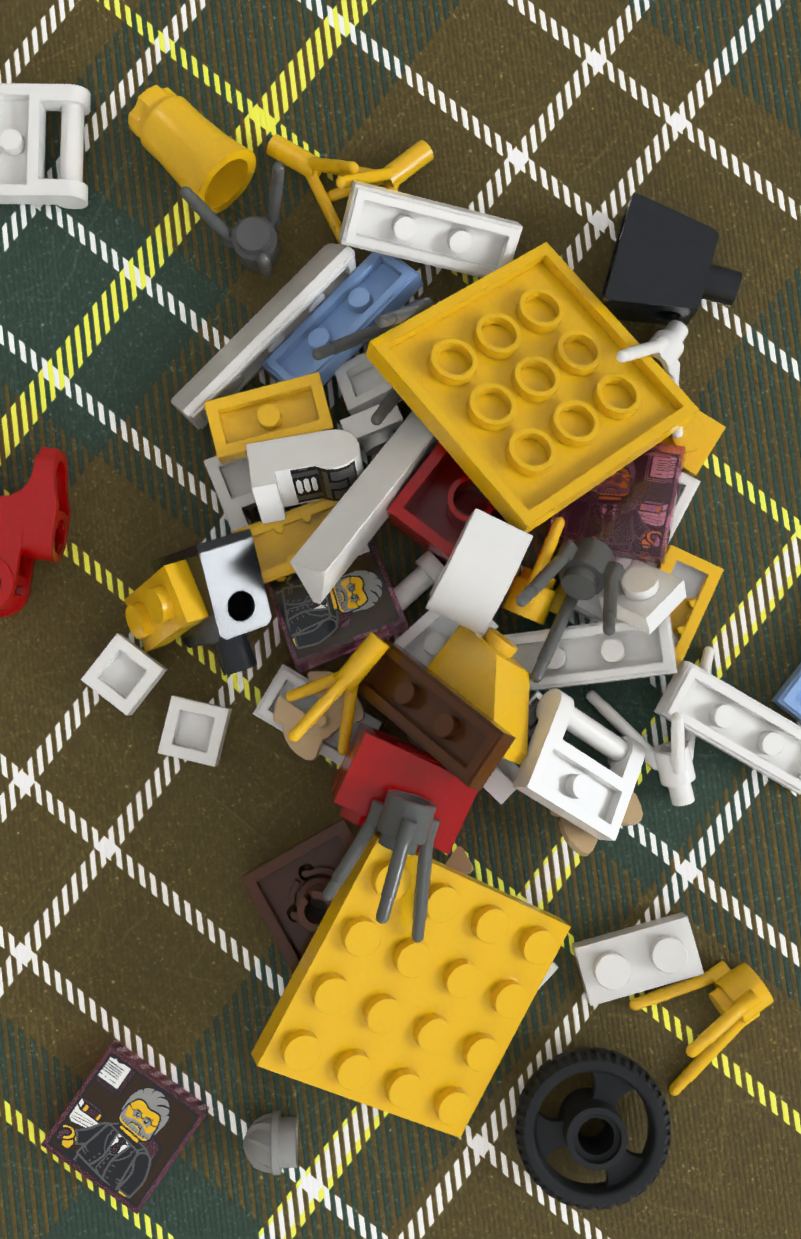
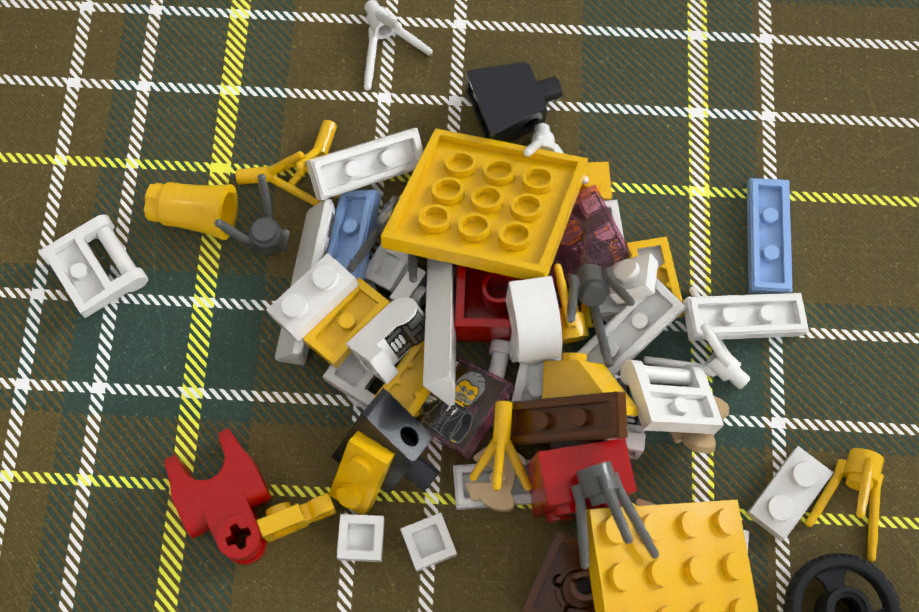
camera: 35 degrees left, 15 degrees down
(55, 595) = (286, 519): none -> yellow plate
(246, 360) = (312, 297): none -> white plate
(576, 63) = (382, 27): none -> white plant

